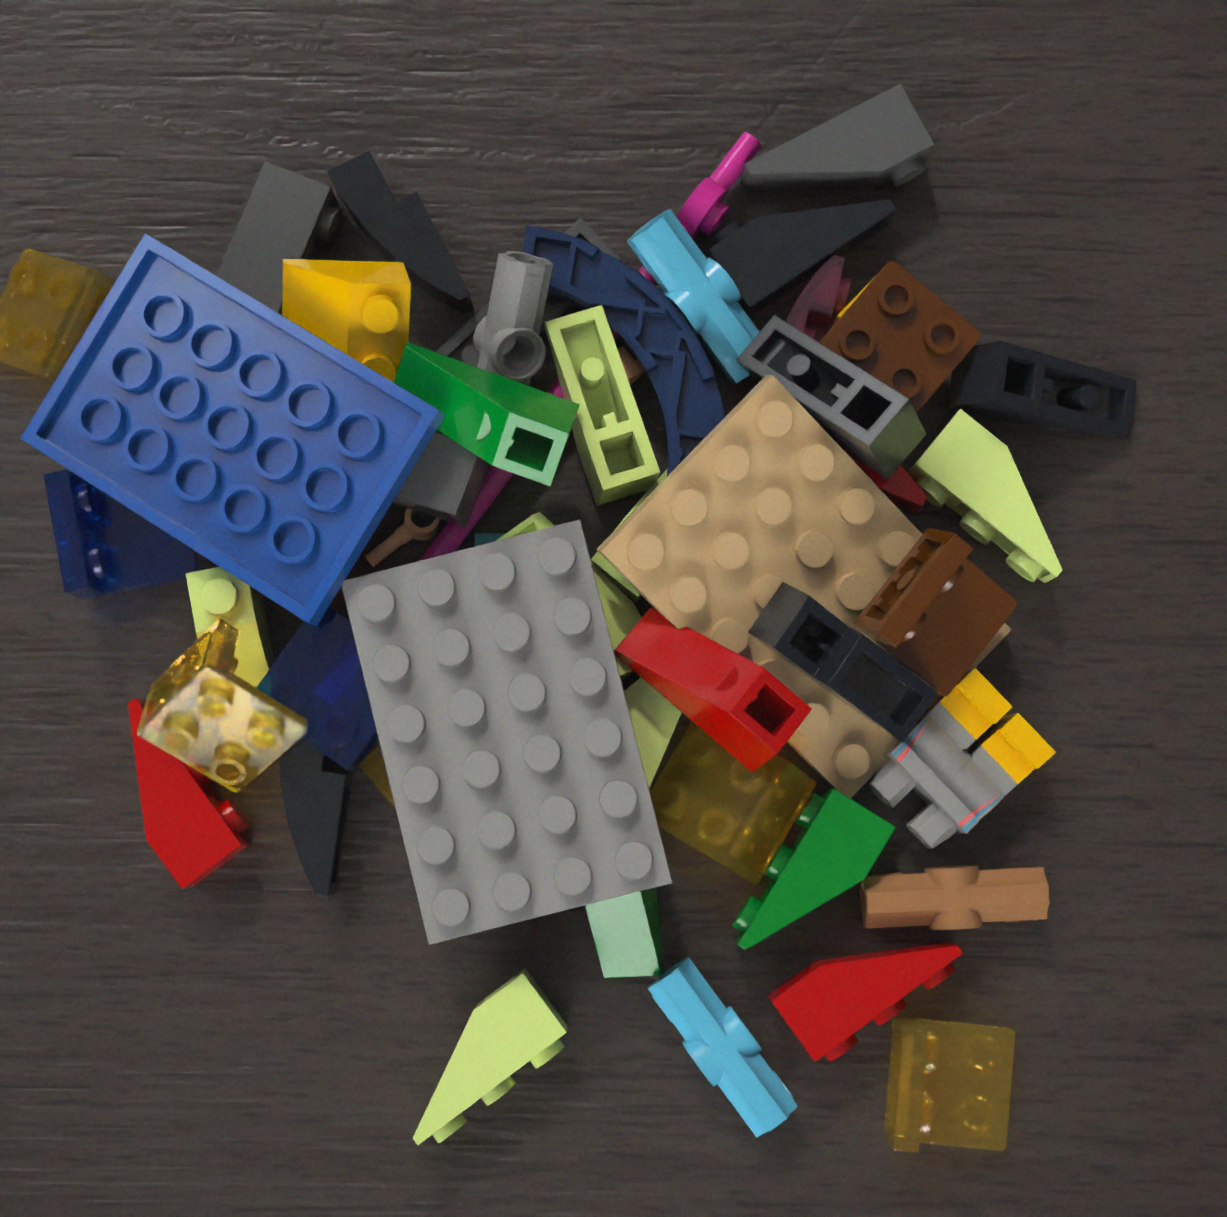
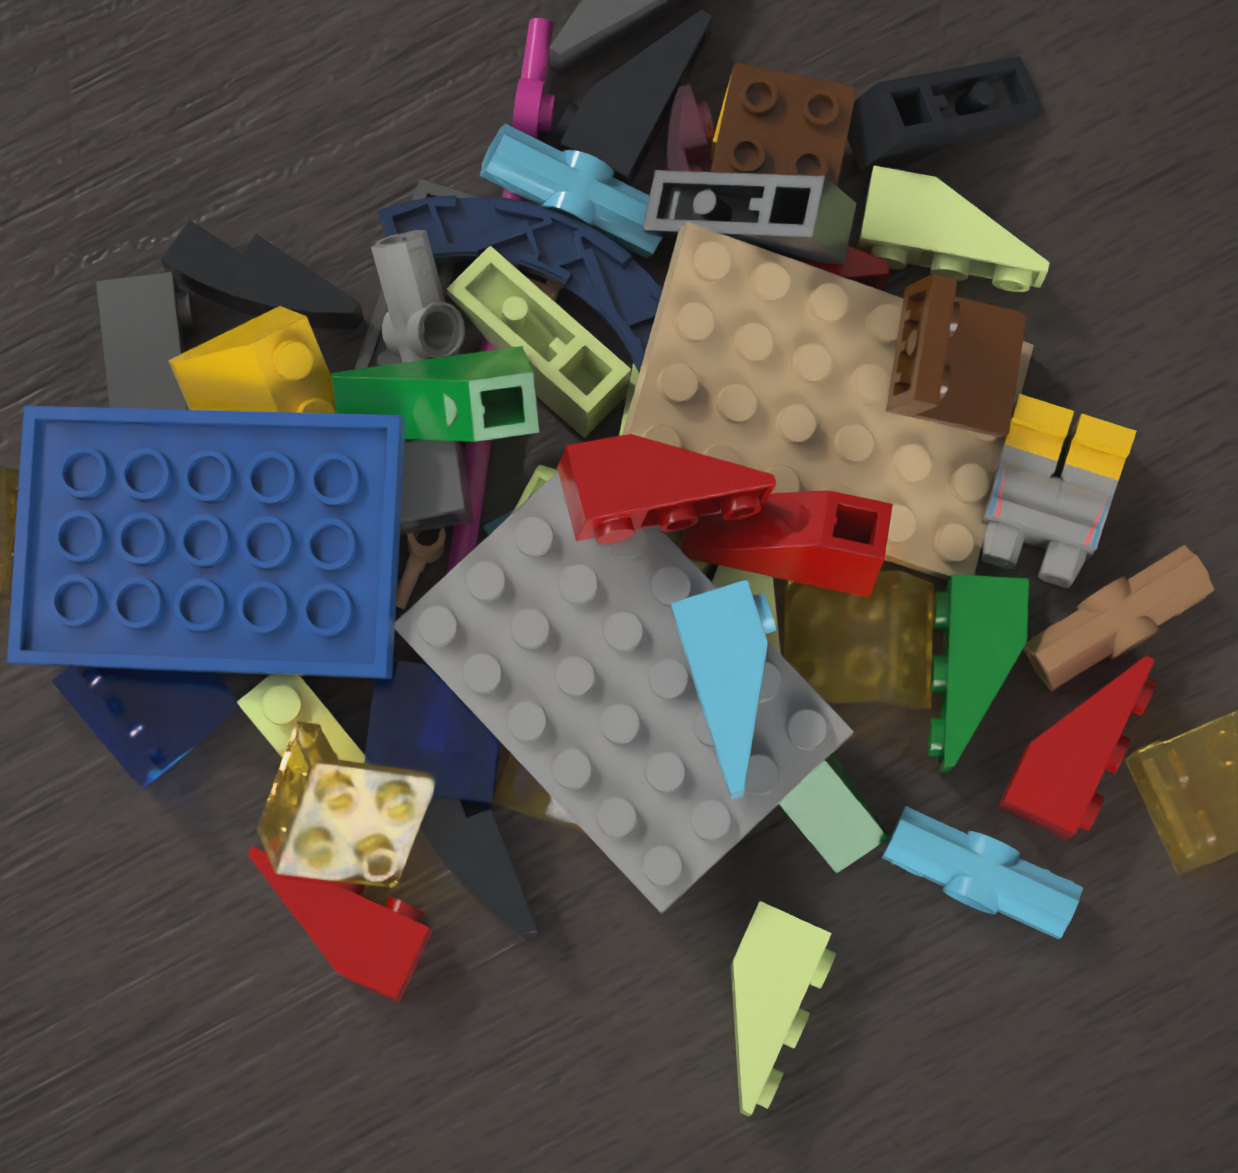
camera: 30 degrees left, 5 degrees down
(592, 772) = (727, 660): none -> medium azure slope
(606, 578) = (644, 484): none -> red slope
(842, 661) = (895, 450): black slope -> none

